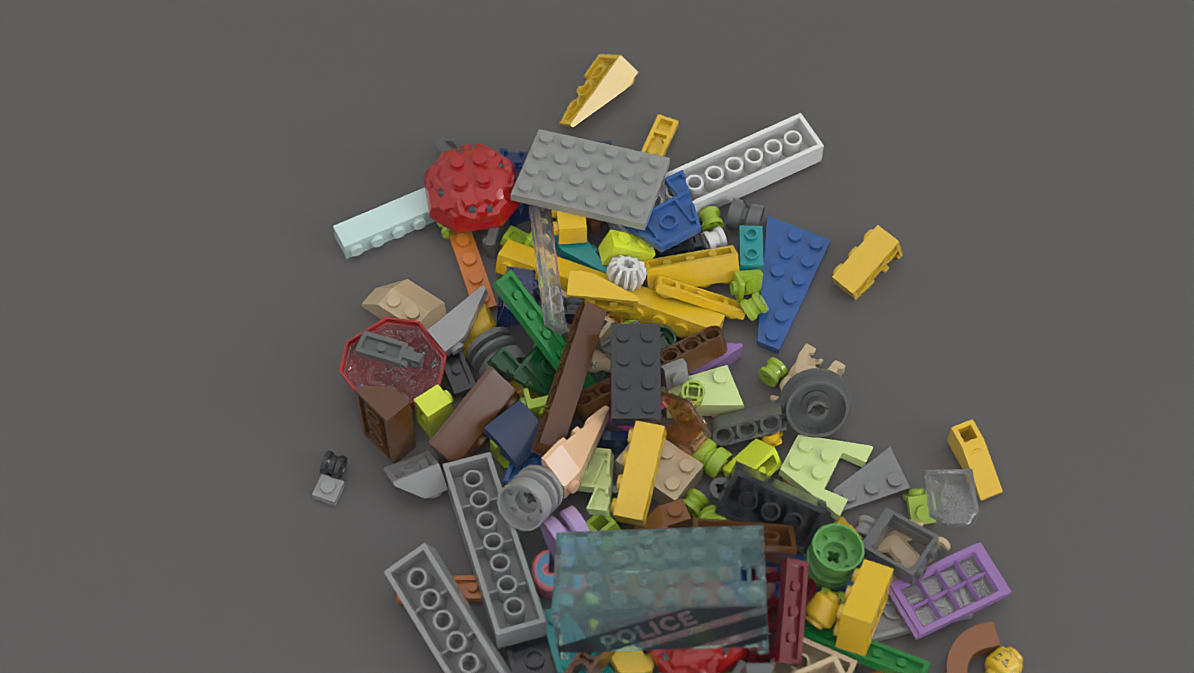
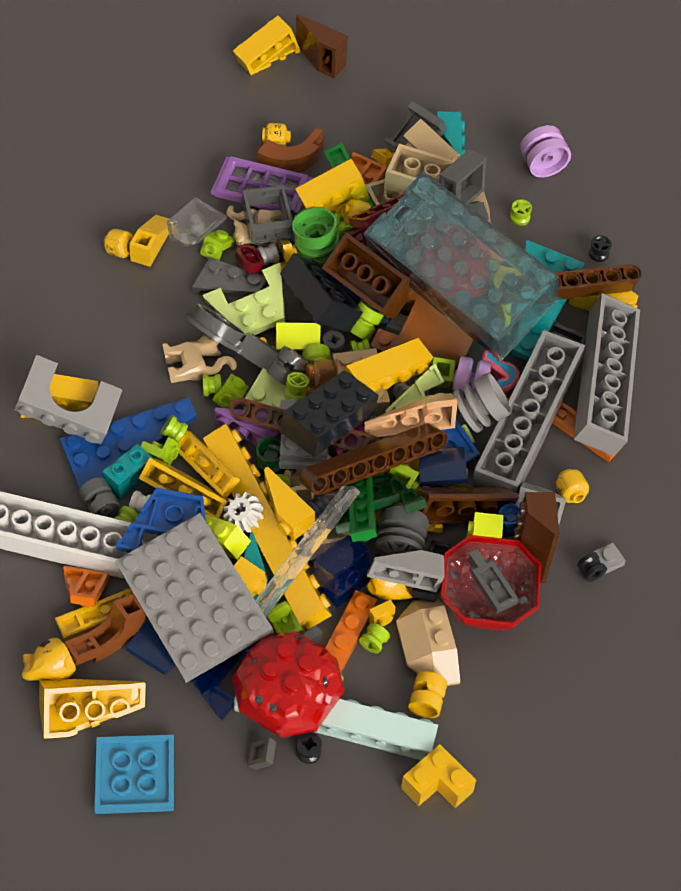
camera: 140 degrees left, 5 degrees down
(314, 225) = (439, 773): none -> yellow brick
(372, 268) = (428, 694): none -> yellow wheel
(406, 521) = (572, 485): none -> yellow head
(416, 172) = (309, 754): none -> black wheel
(422, 435) = (509, 514): none -> blue wheel
(448, 279) = (374, 638): none -> lime wheel
(458, 296) = (382, 614): none -> yellow plate
(518, 78) = (134, 774): none -> dark azure plate
(632, 125) = (111, 635): none -> dark orange arch
(645, 89) = (48, 662): none -> yellow piece
(680, 148) = (84, 585): none -> orange wing
(720, 410) = (280, 371): none -> dark grey wheel
(751, 379) = (231, 389): none -> lime bracket
(859, 216) = (37, 403): none -> light grey arch
(874, 505) = (249, 258): none -> dark red plate
(995, 432) = (117, 243): none -> yellow head

